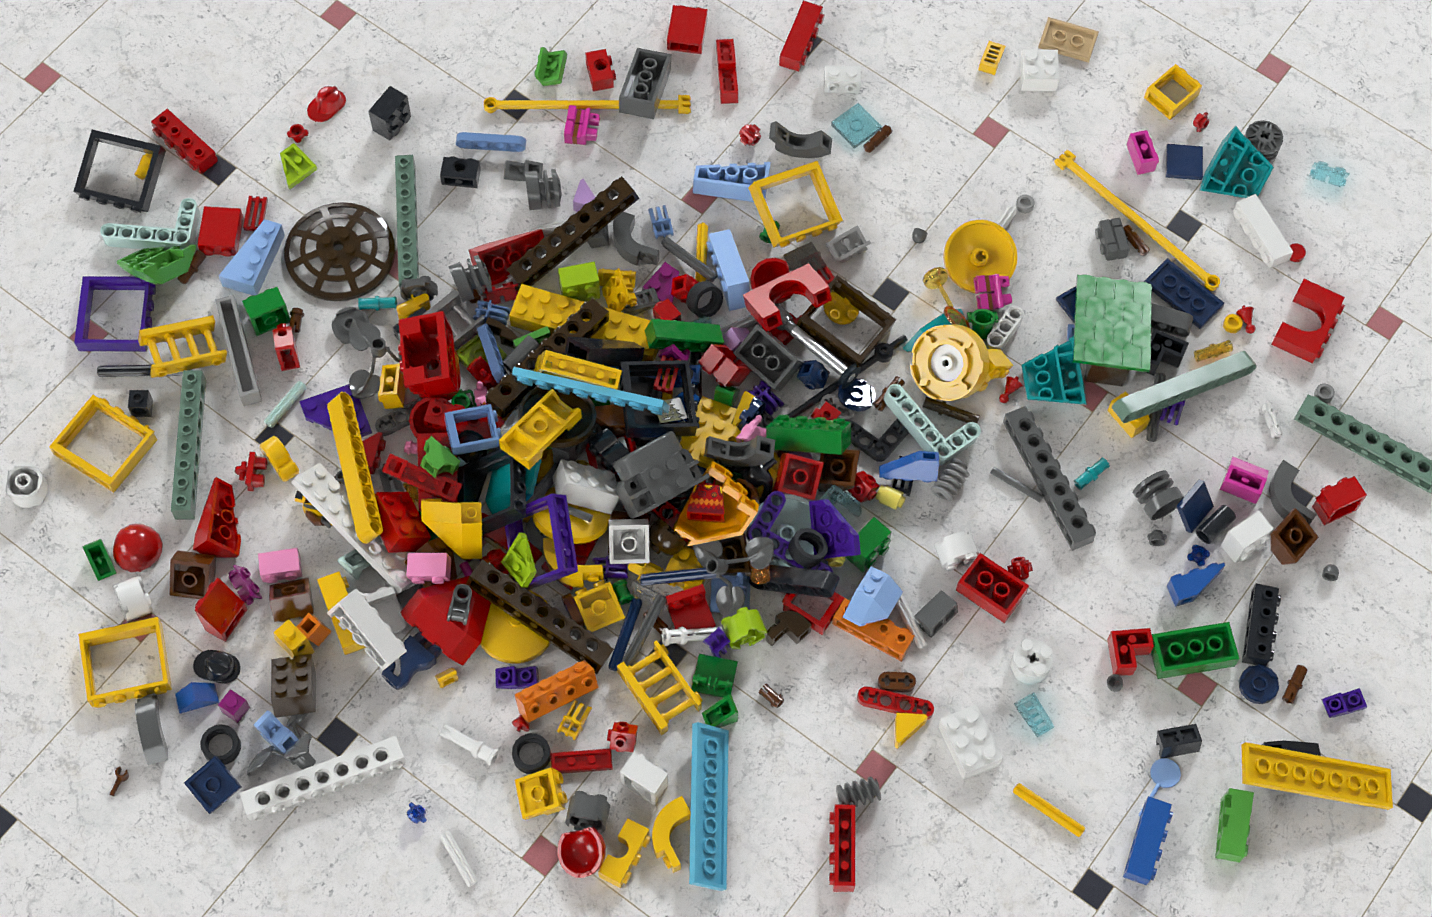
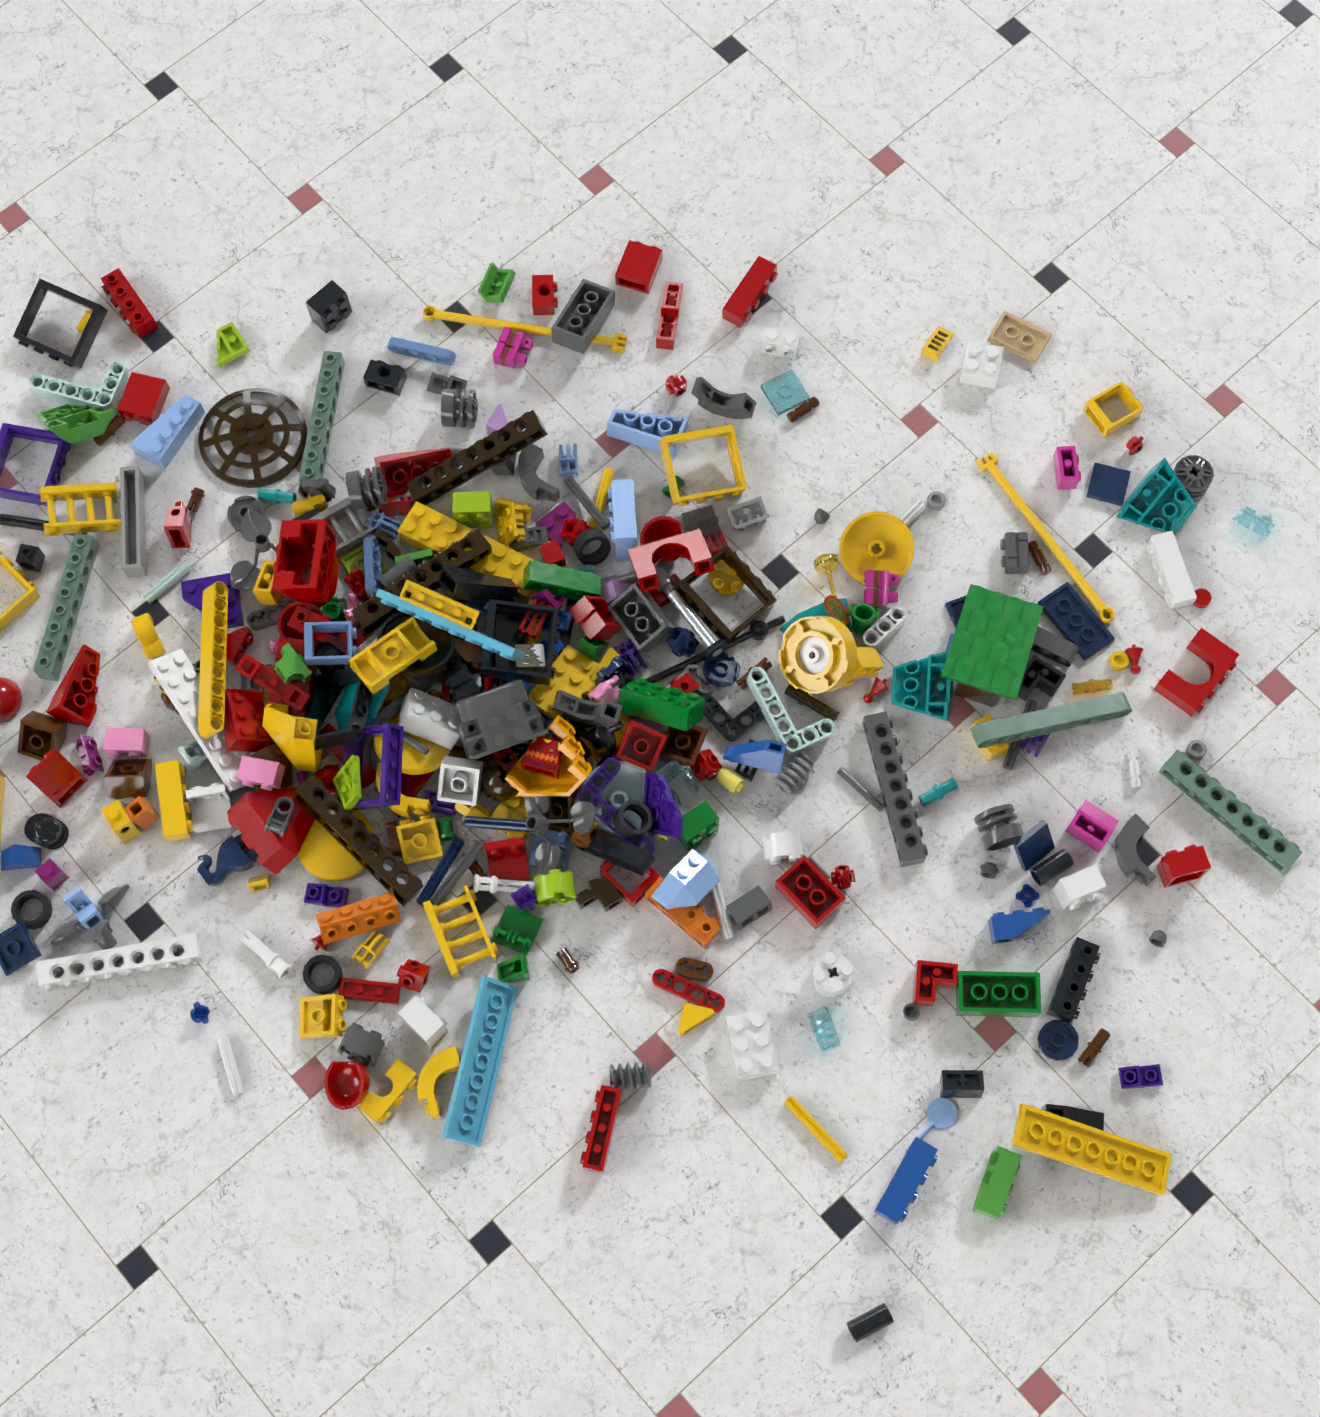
camera: 15 degrees right, 5 degrees up
(252, 479) = (118, 642): red hips -> none
(257, 200) = (192, 375): red tile -> none
(266, 310) = (167, 486): green brick -> none
(293, 685) = (109, 866): dark brown piece -> none
(297, 128) = (238, 307): red plate -> none
(326, 104) = (273, 287): red piece -> none
(368, 628) = (190, 824): white wedge -> none
(1292, 538) = (1125, 897): reddish brown slope -> none

